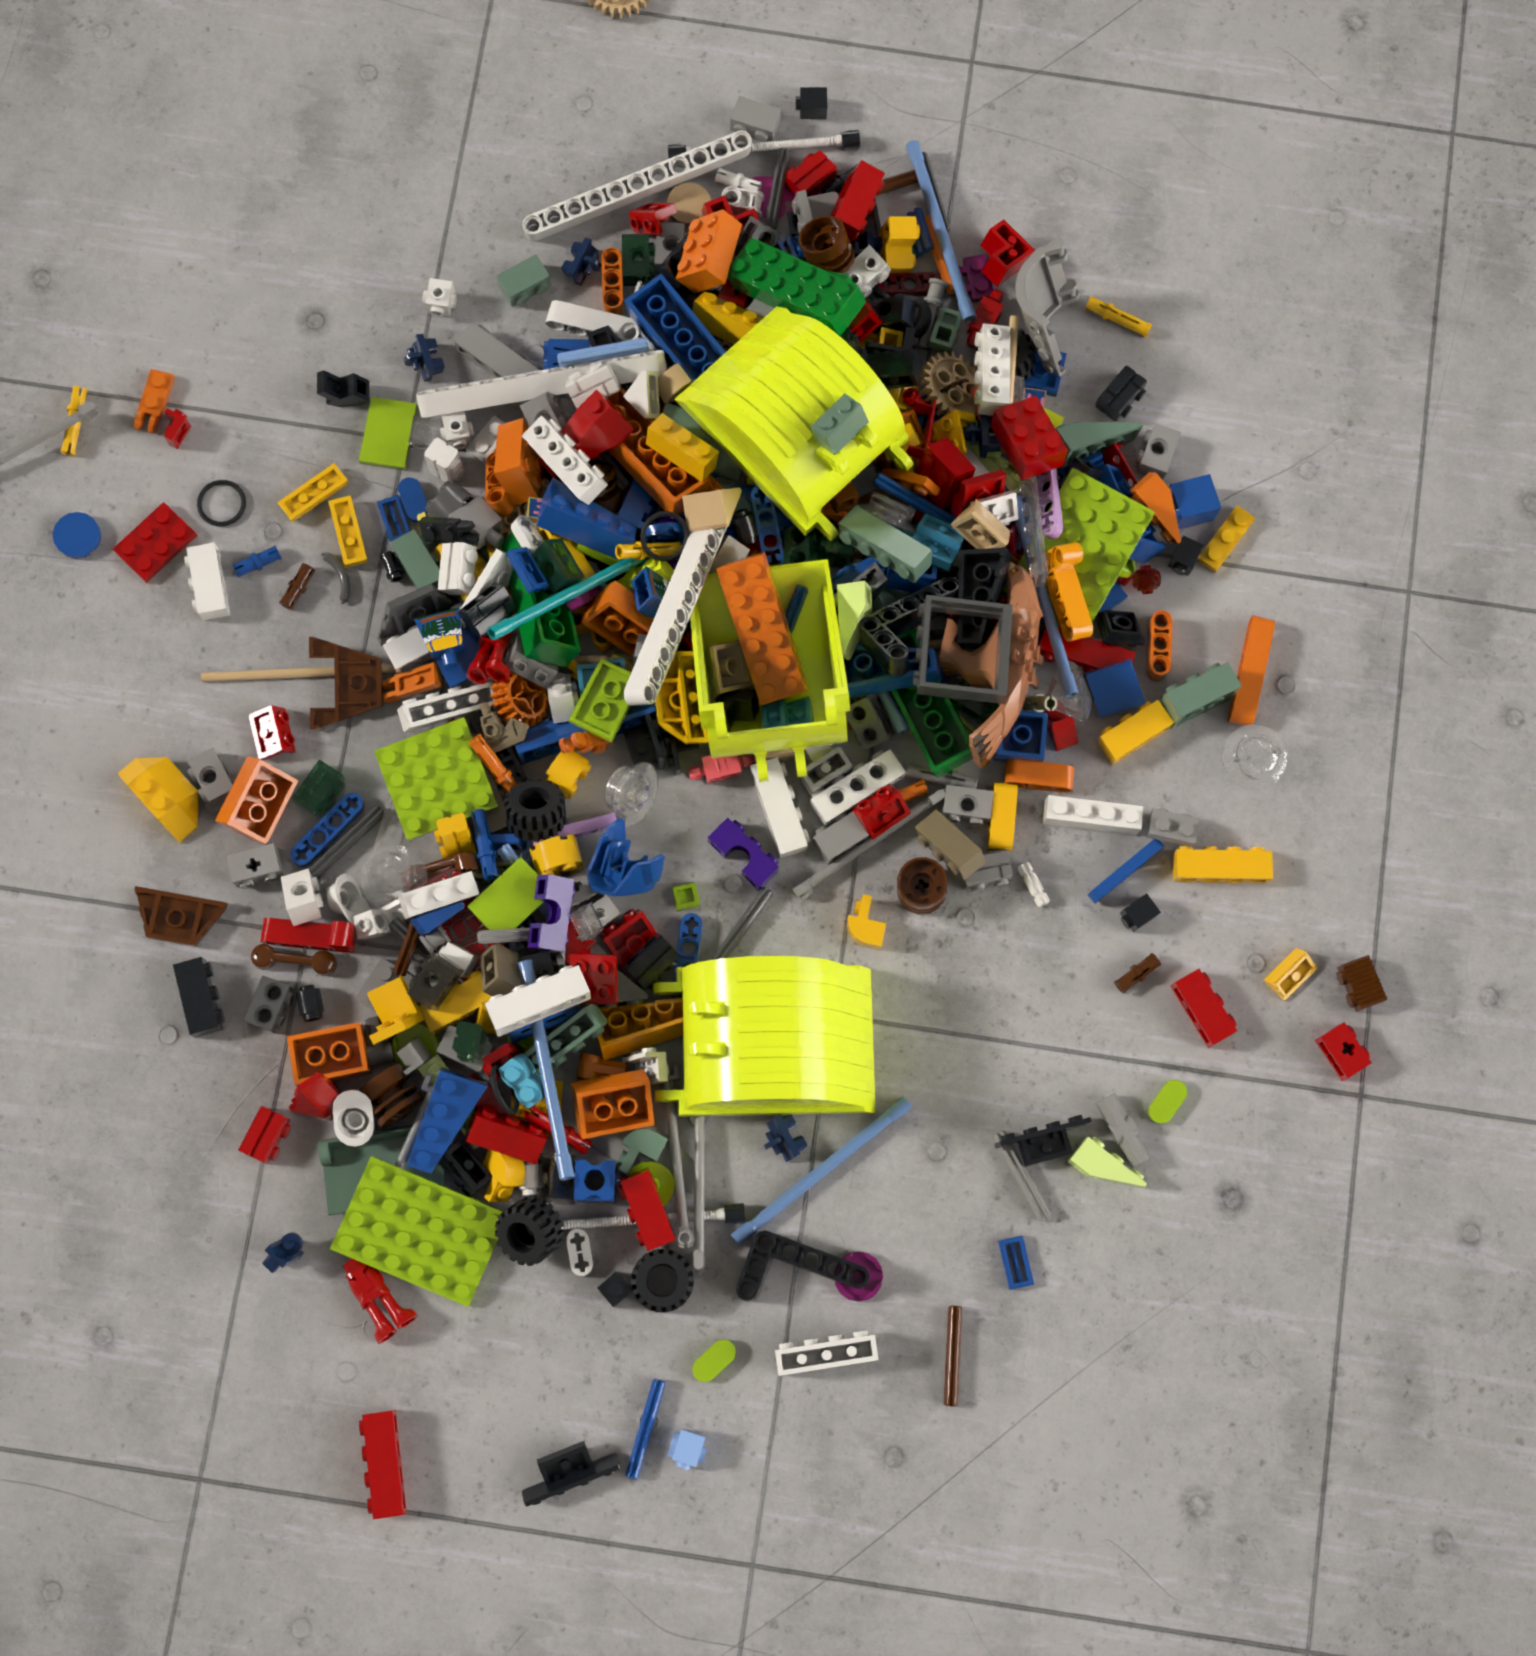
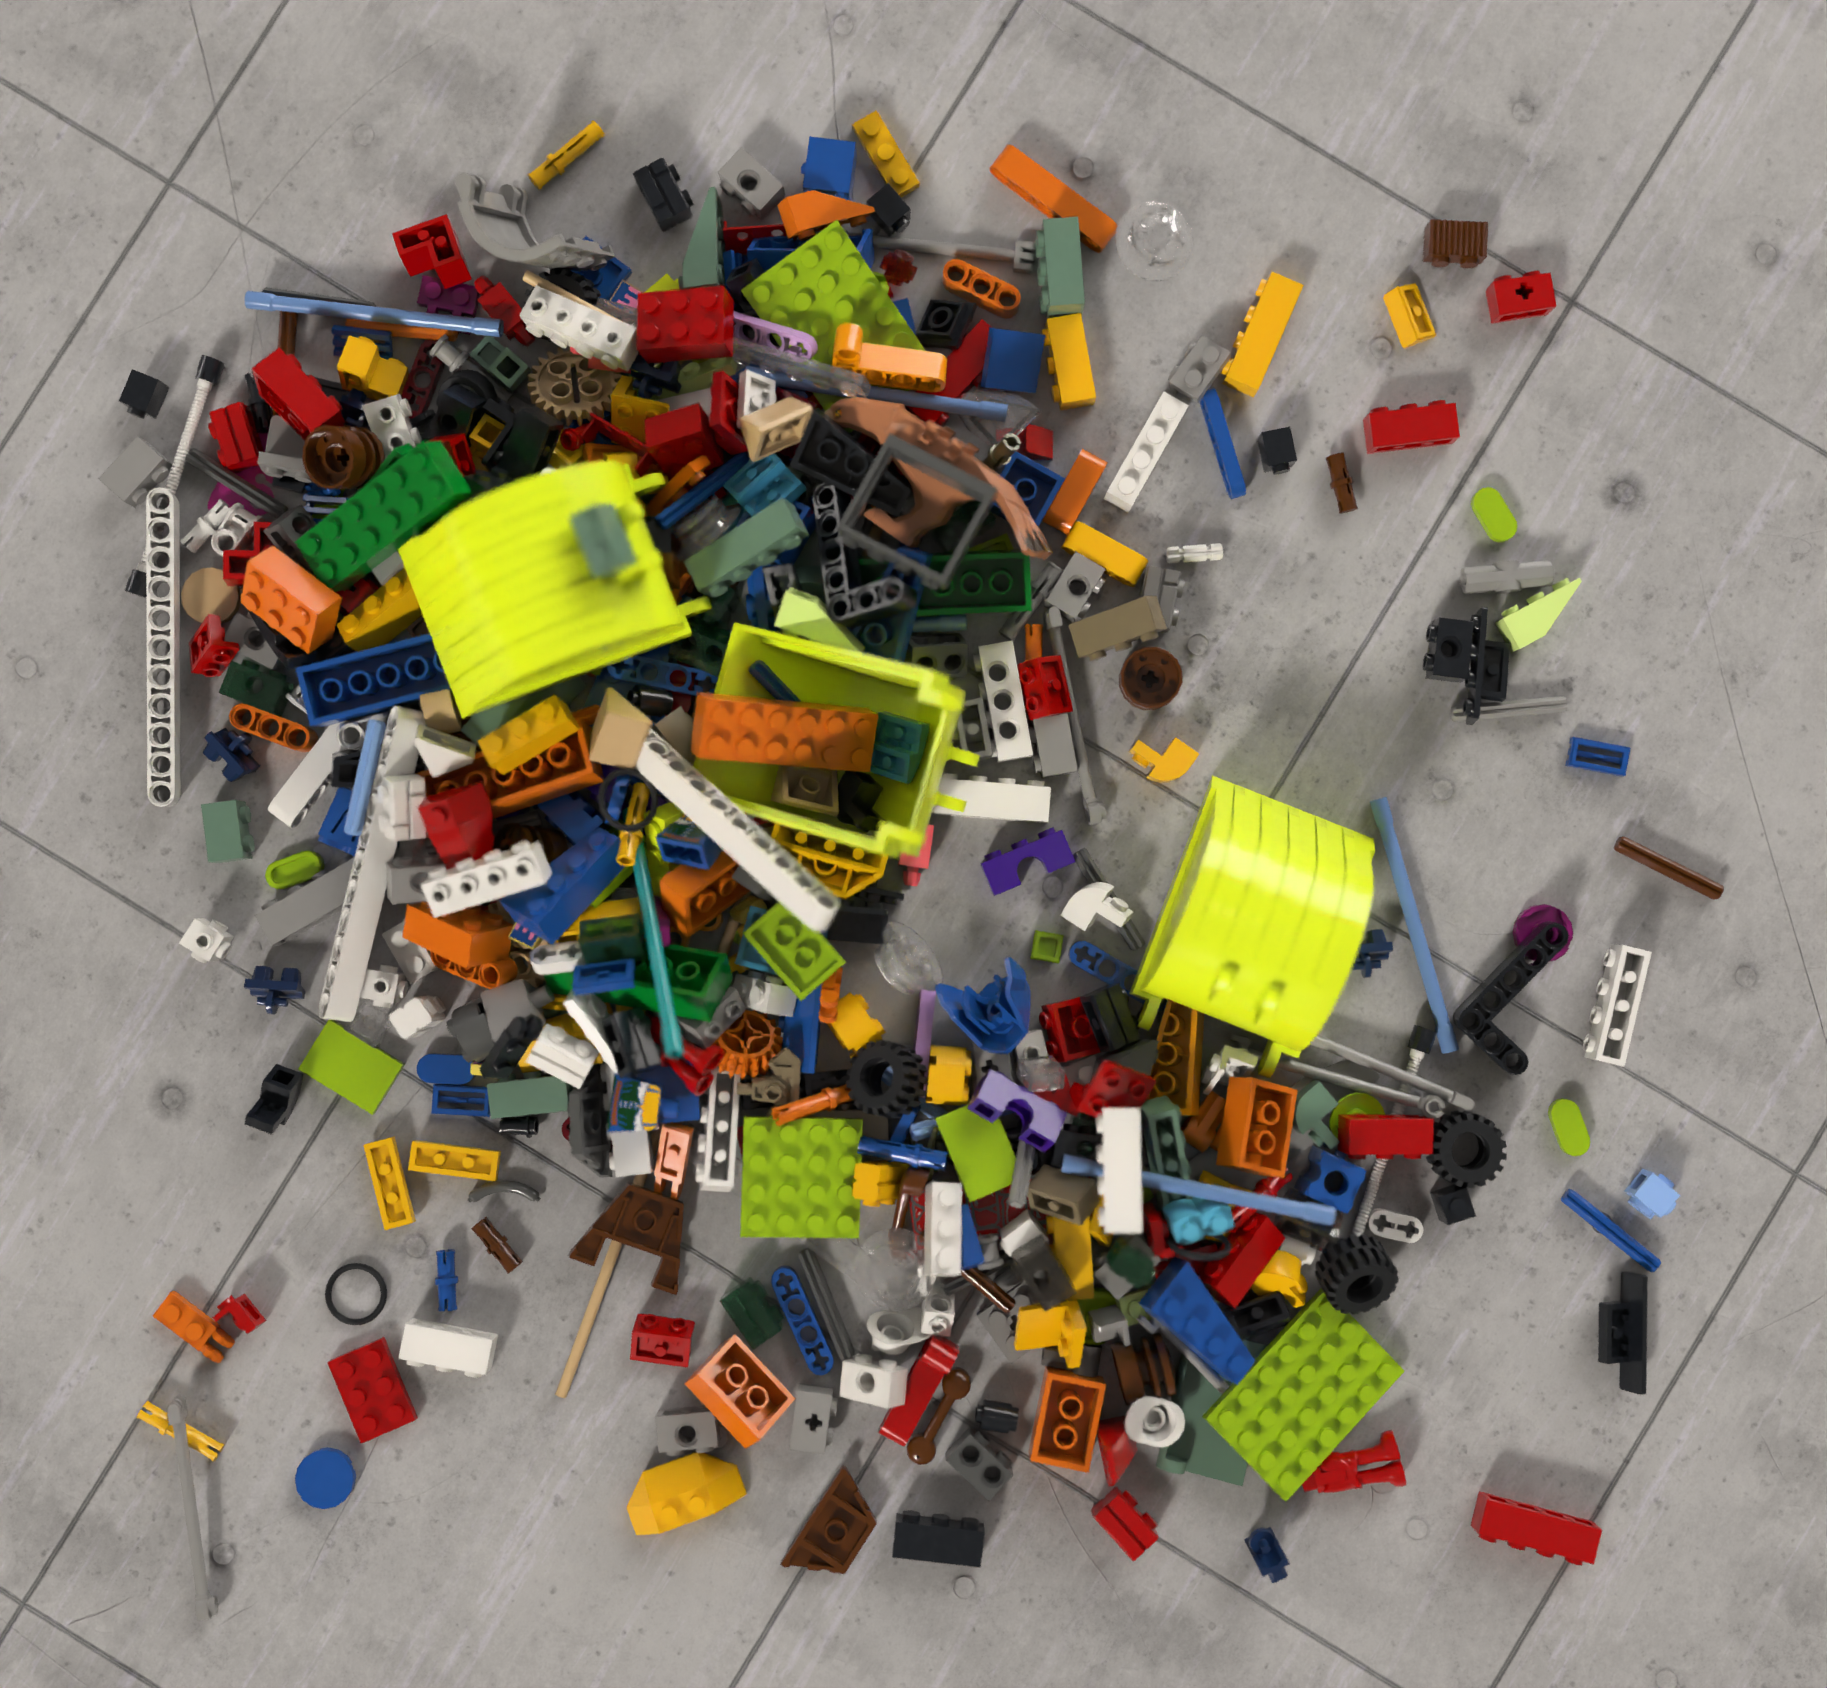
camera: 60 degrees left, 10 degrees up
(516, 337) = (294, 869): none -> lime tile
(732, 912) = (1095, 900): none -> white brick
(1061, 1107) = (1459, 636): none -> black brick
(1196, 663) = (1016, 256): none -> light grey hinge

